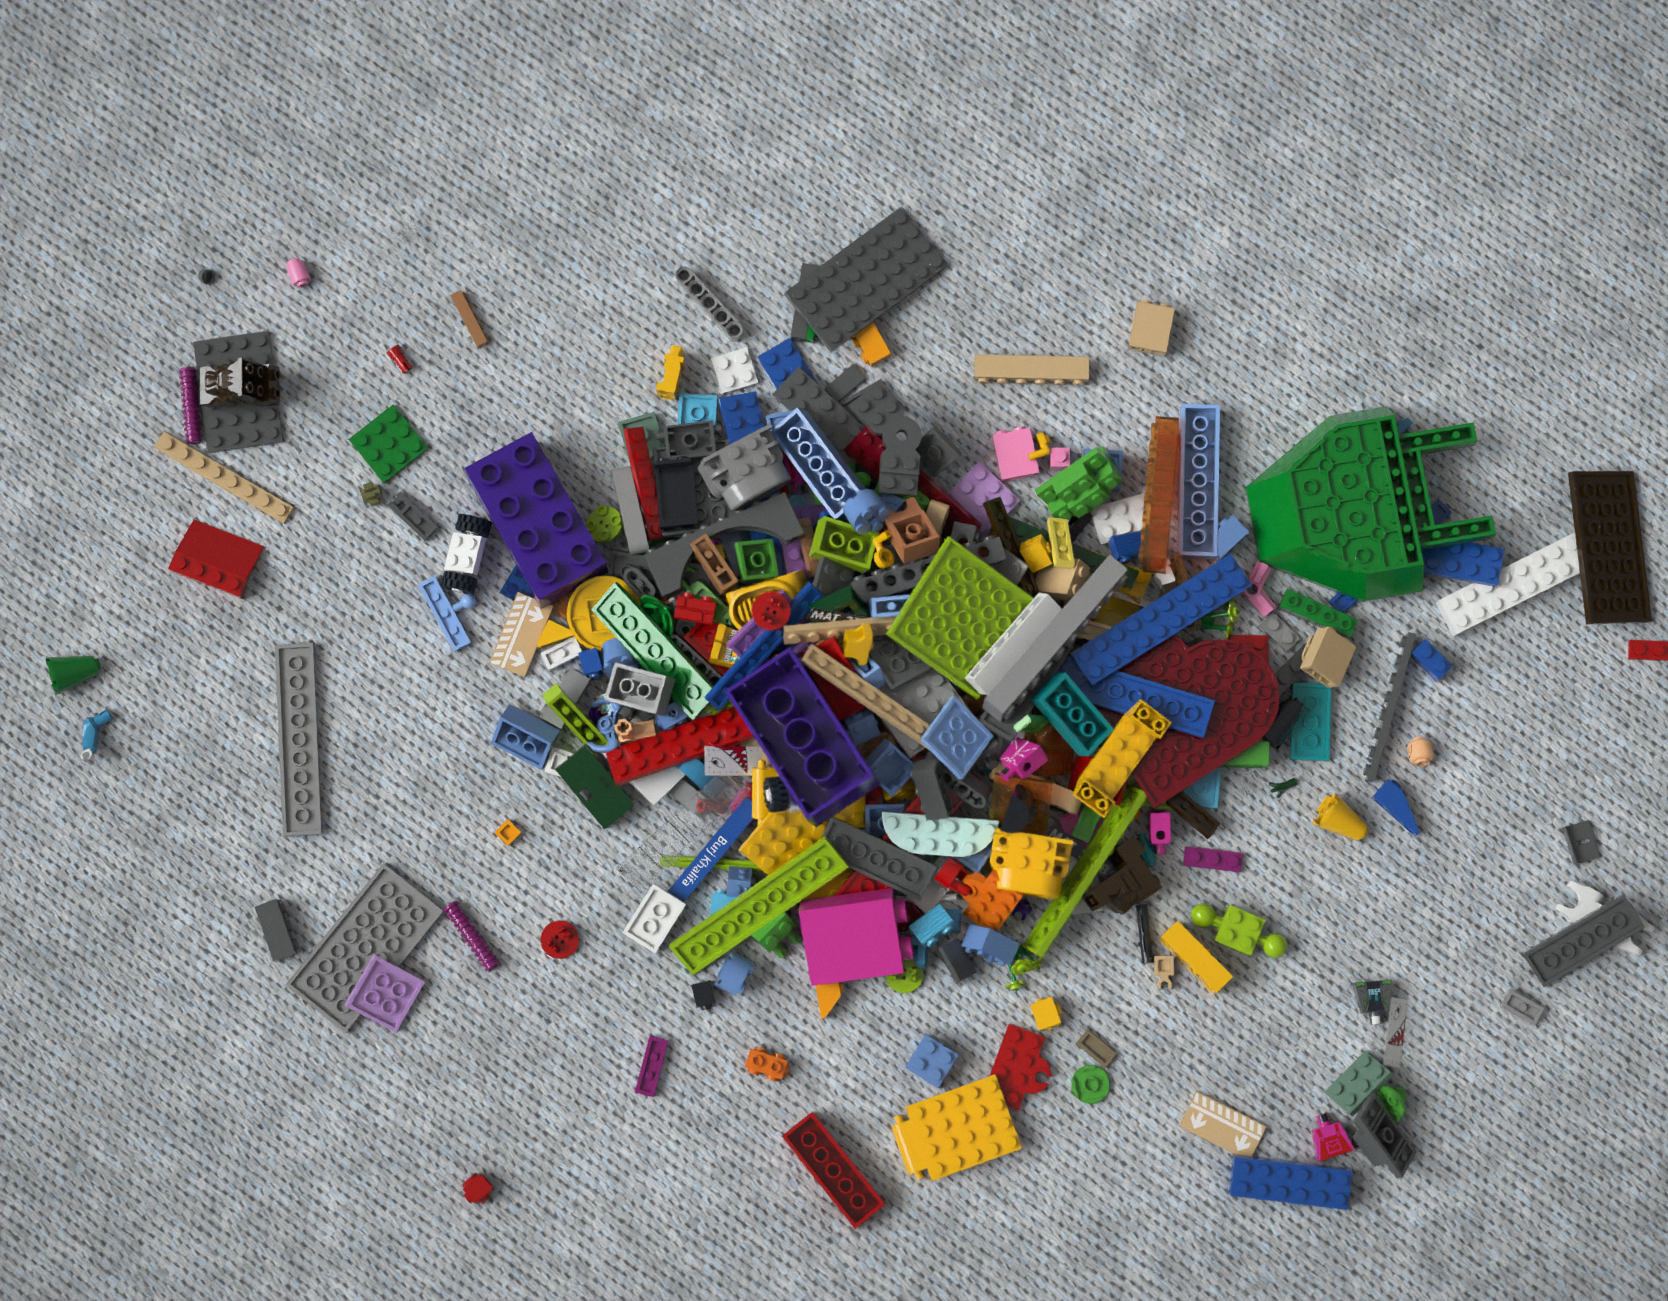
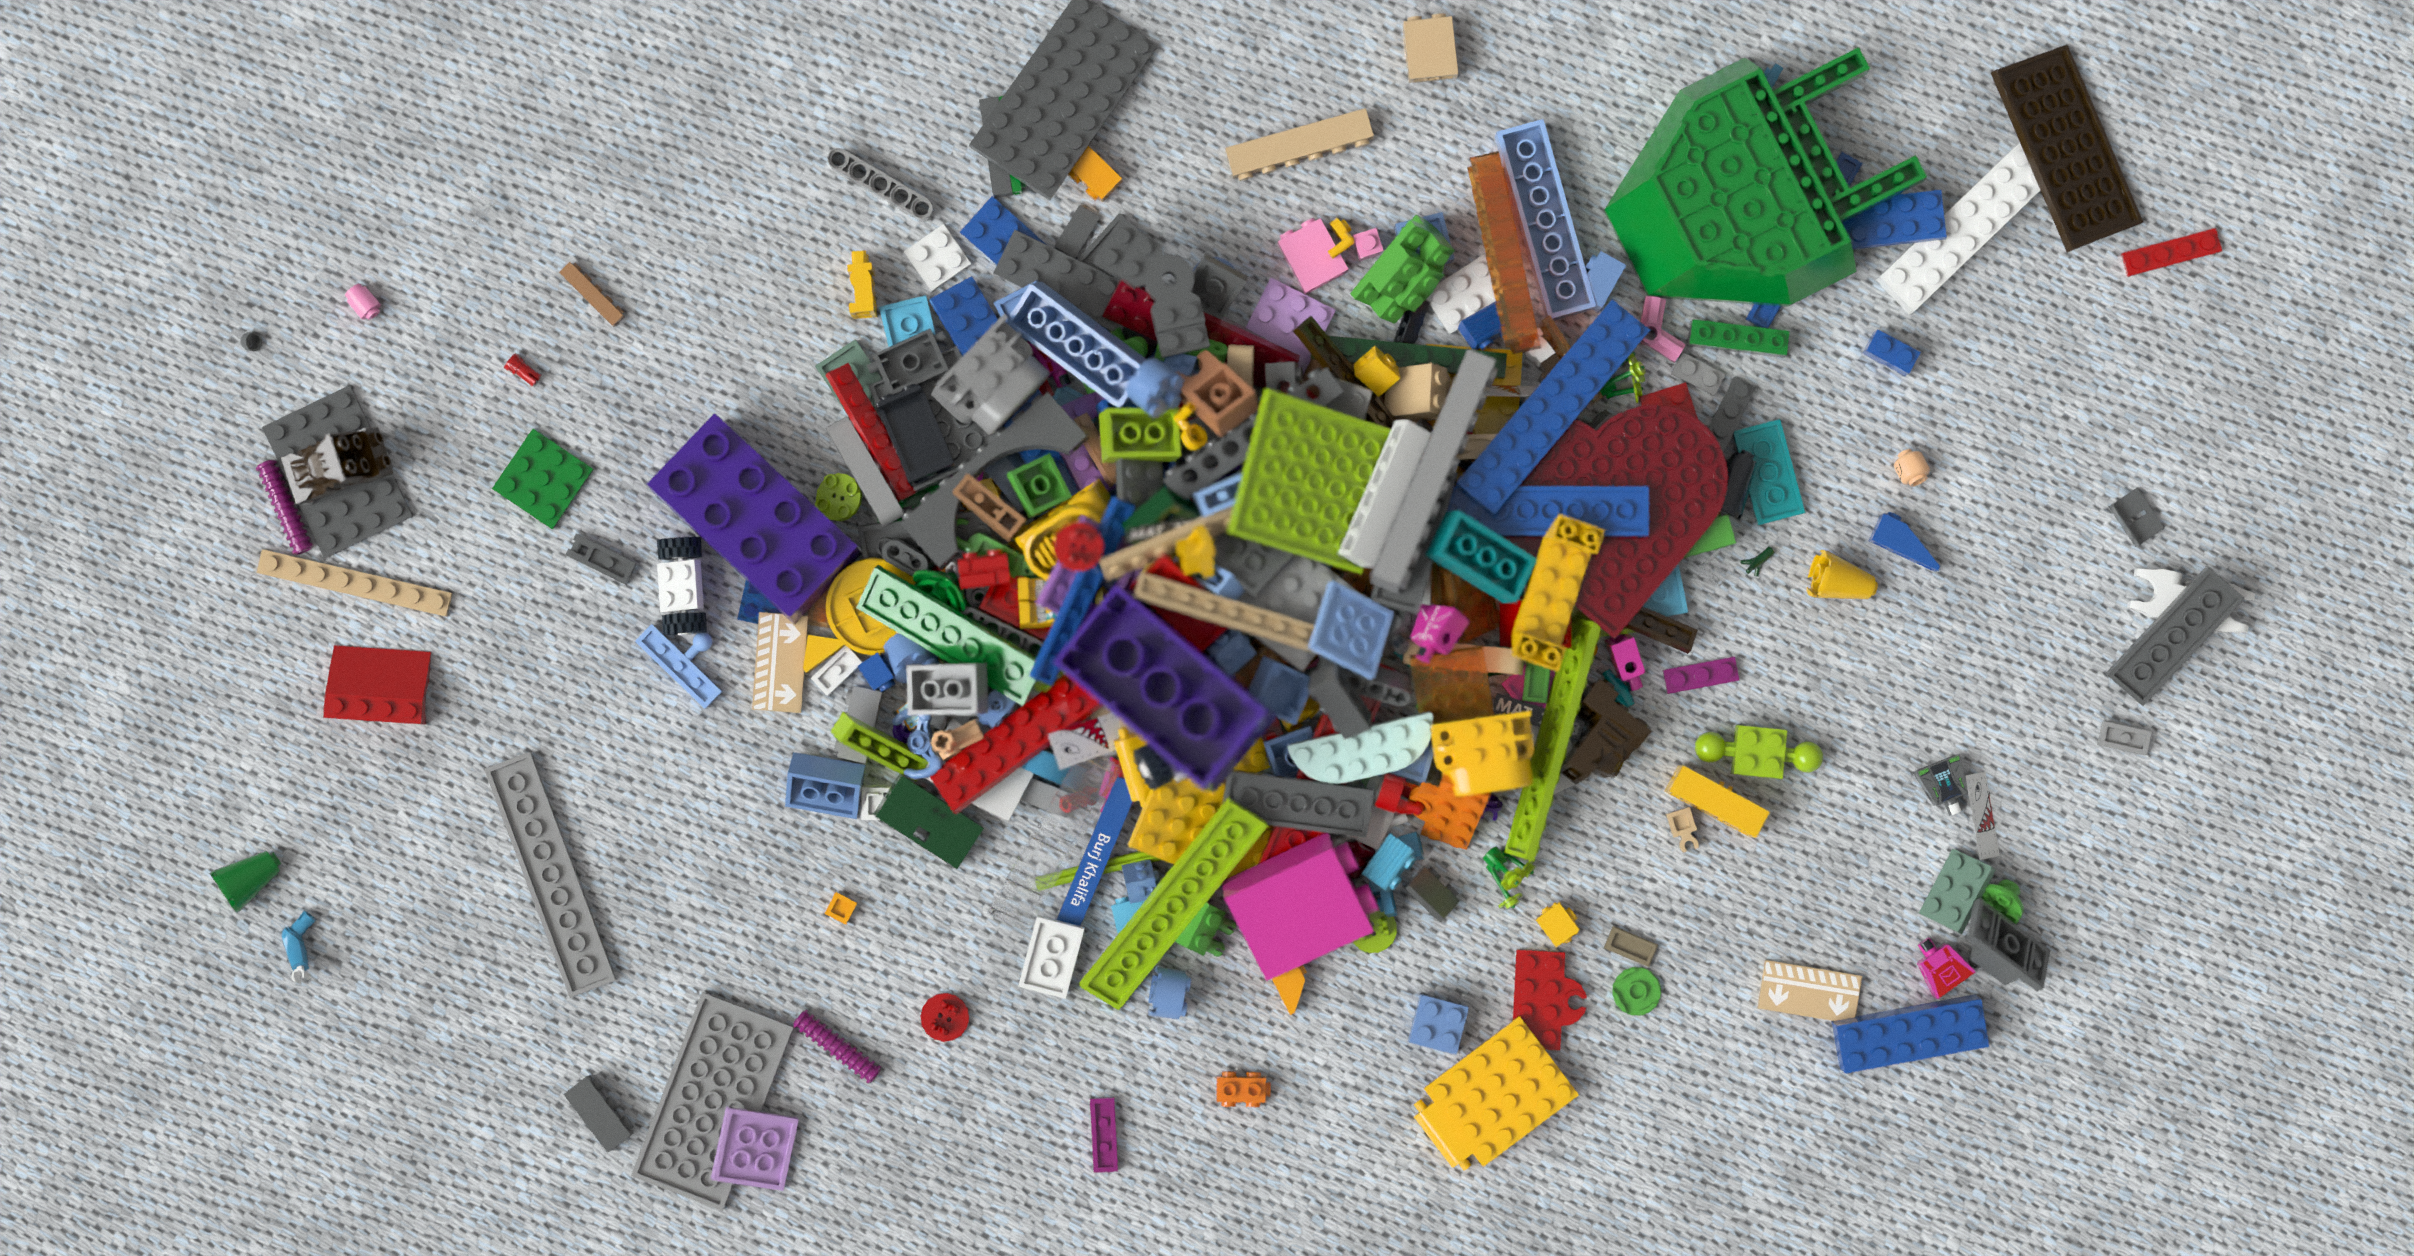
camera: 20 degrees left, 5 degrees up
(371, 494) = (542, 547): olive gear -> none
(703, 995) = (1139, 1030): black brick -> none
(833, 1170) = (1361, 1191): red brick -> none
(990, 945) = (1466, 864): medium blue container -> none
(1019, 811) = (1455, 694): black brick -> none
(1031, 724) = (1435, 585): bright green plate -> none
(1060, 542) = (1402, 349): light yellow plate -> none
(1144, 933) = (1646, 791): black pin -> none
(1327, 656) = (1766, 387): tan brick -> none
(1391, 698) = (1857, 413): dark grey plate -> none

